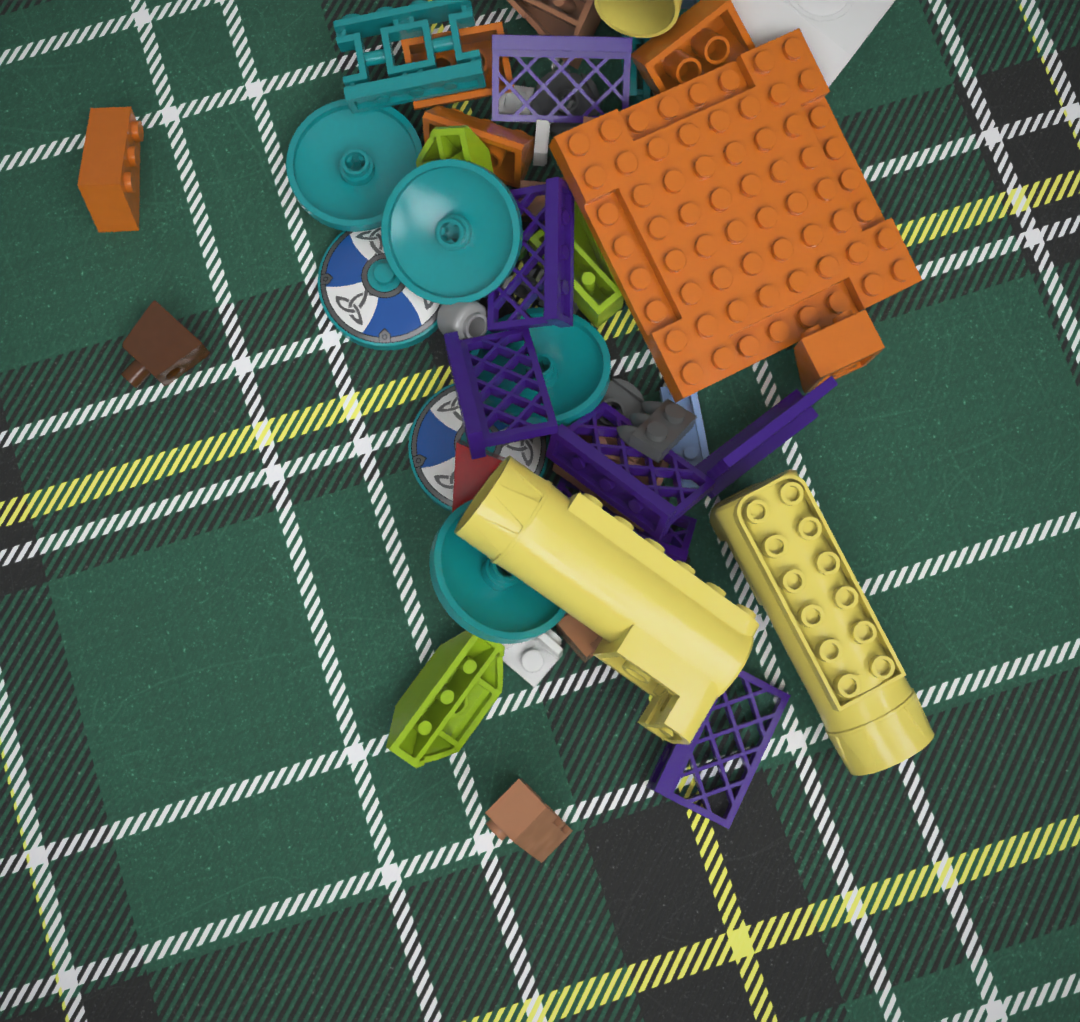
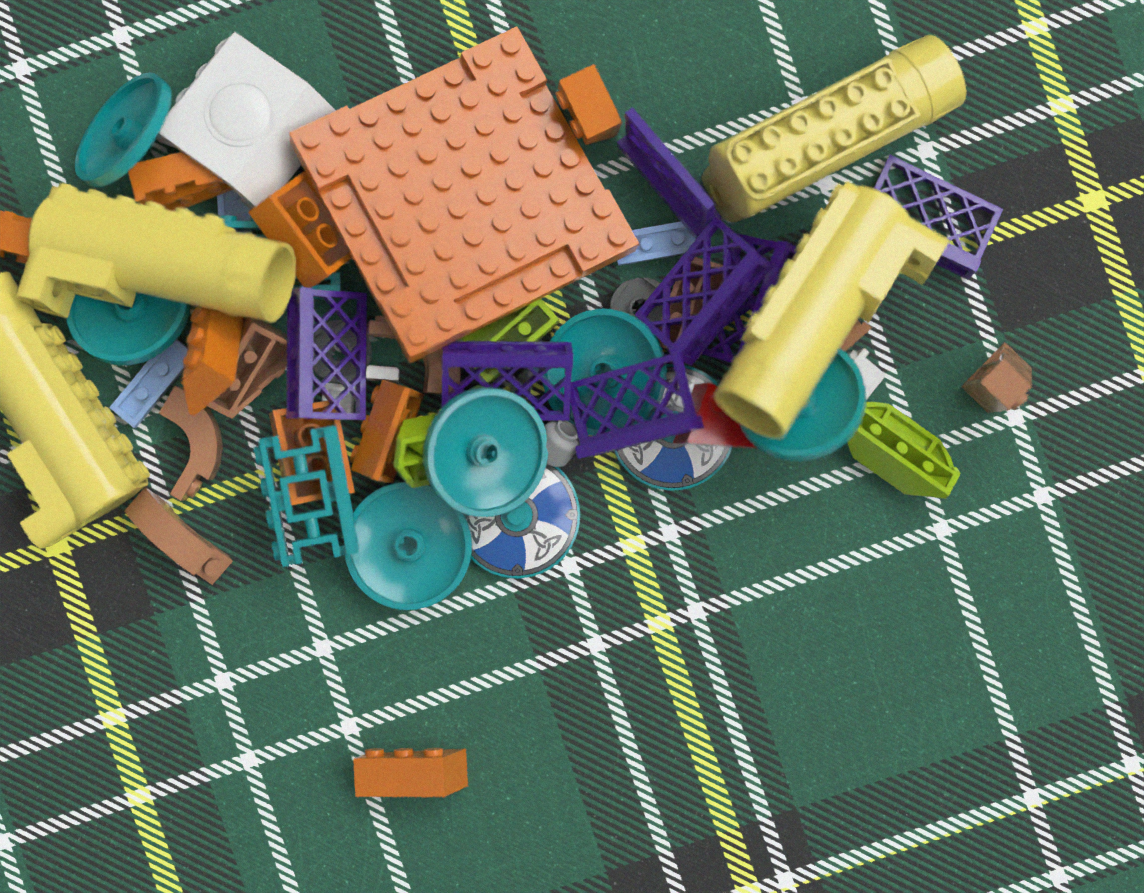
camera: 90 degrees left, 10 degrees up
(161, 348) = (585, 718): reddish brown torso -> none
(657, 429) = (663, 266): dark grey plate -> none

